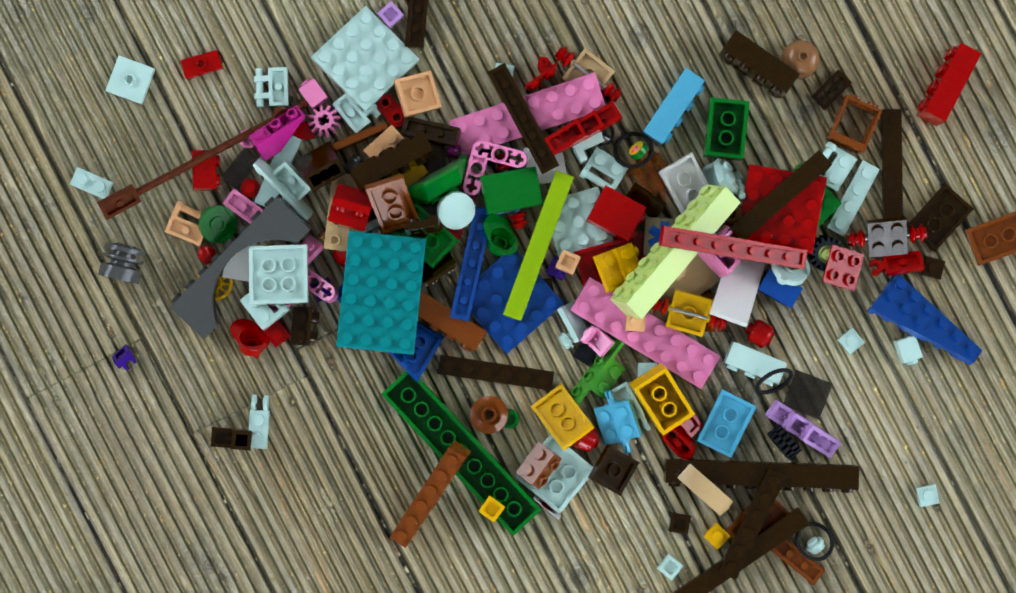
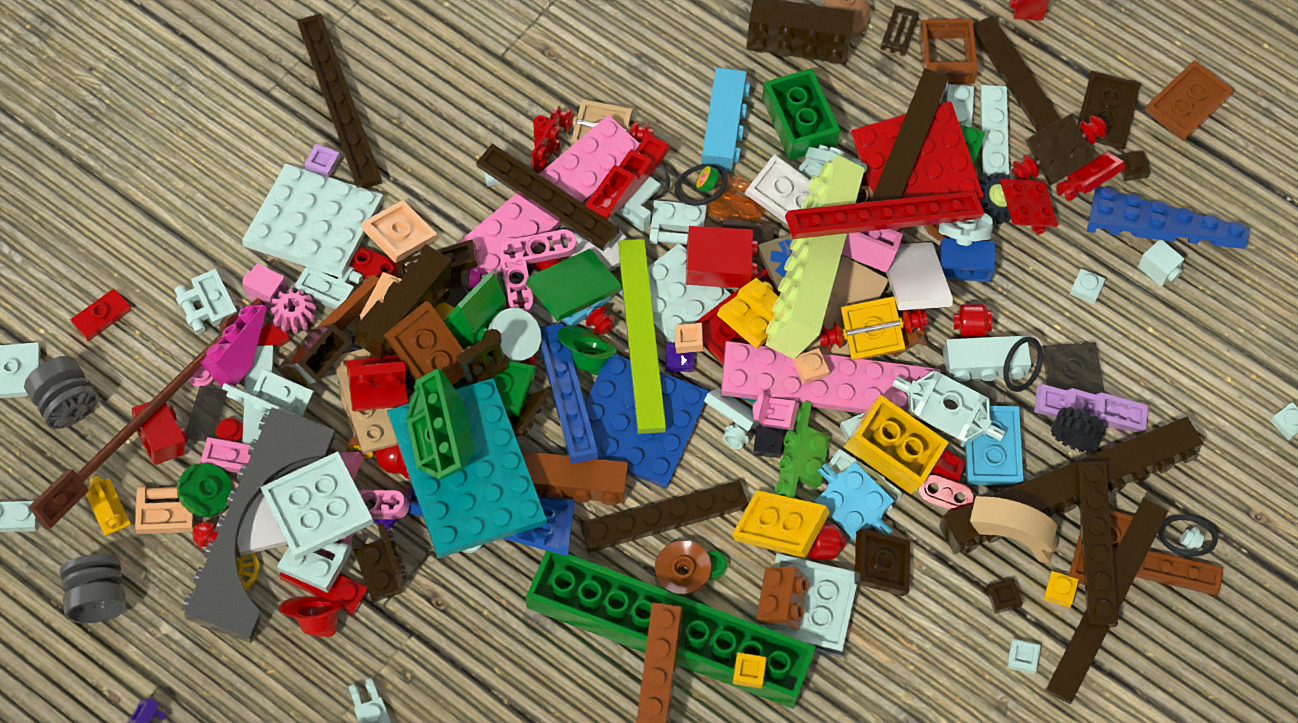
camera: 30 degrees left, 25 degrees down
(153, 118) = (61, 392): none -> dark grey wheel
(154, 206) = (106, 506): none -> yellow hinge
(372, 268) = (439, 426): none -> green wedge
(695, 382) = (965, 422): none -> light aqua plate

